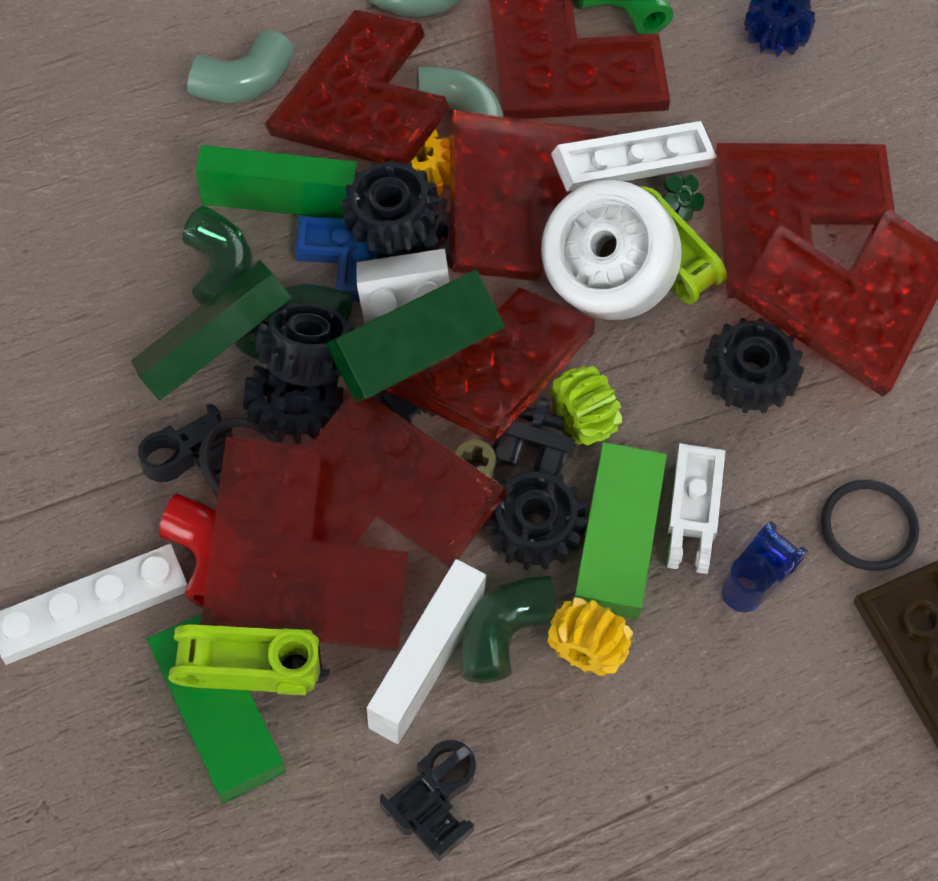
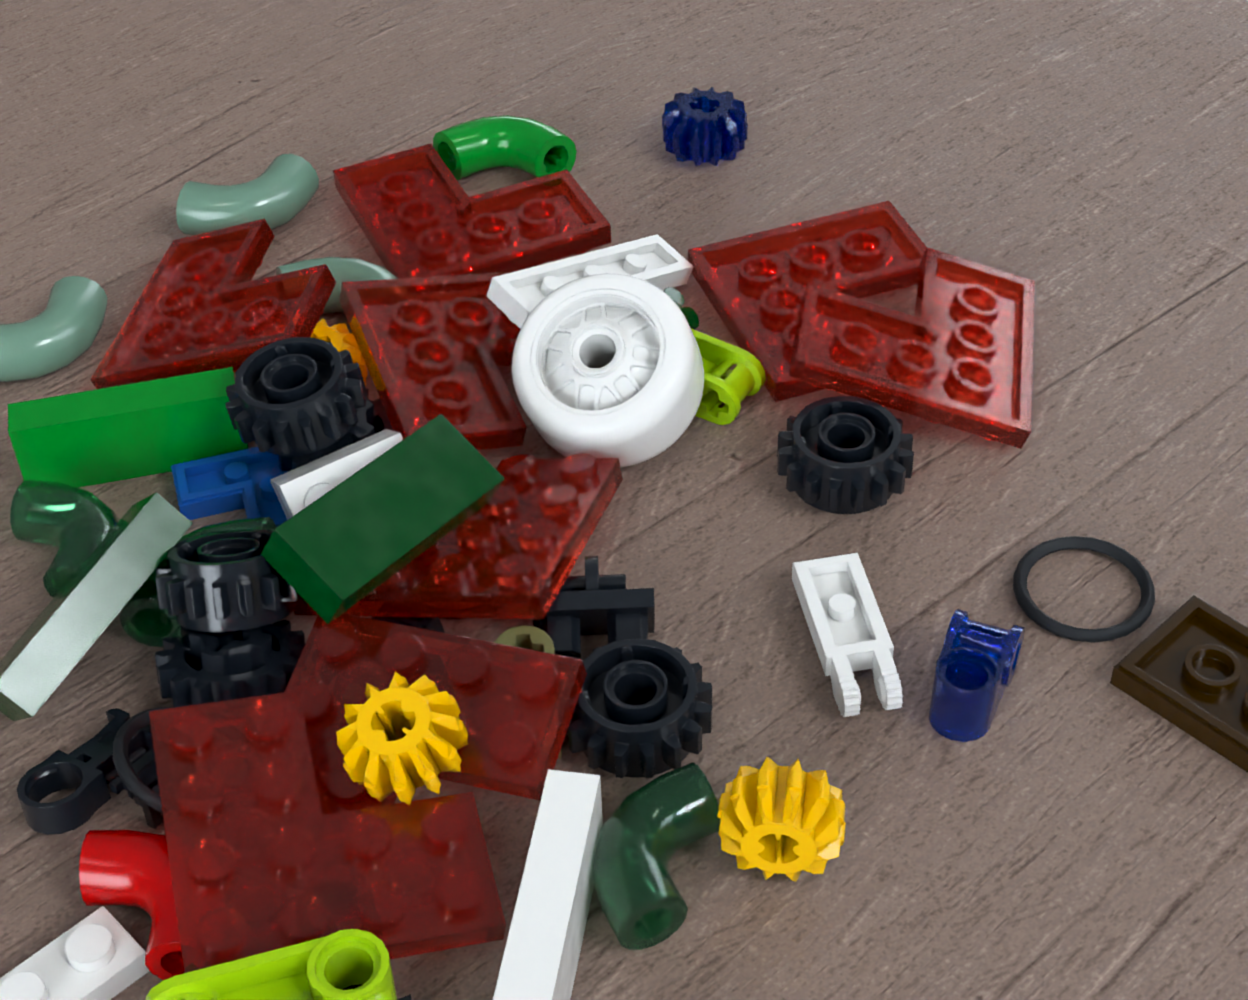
camera: 15 degrees left, 20 degrees down
(364, 493) = (402, 738): none -> yellow gear
(586, 405) = (650, 548): lime gear -> none
(621, 529) = (759, 677): bright green piece -> none

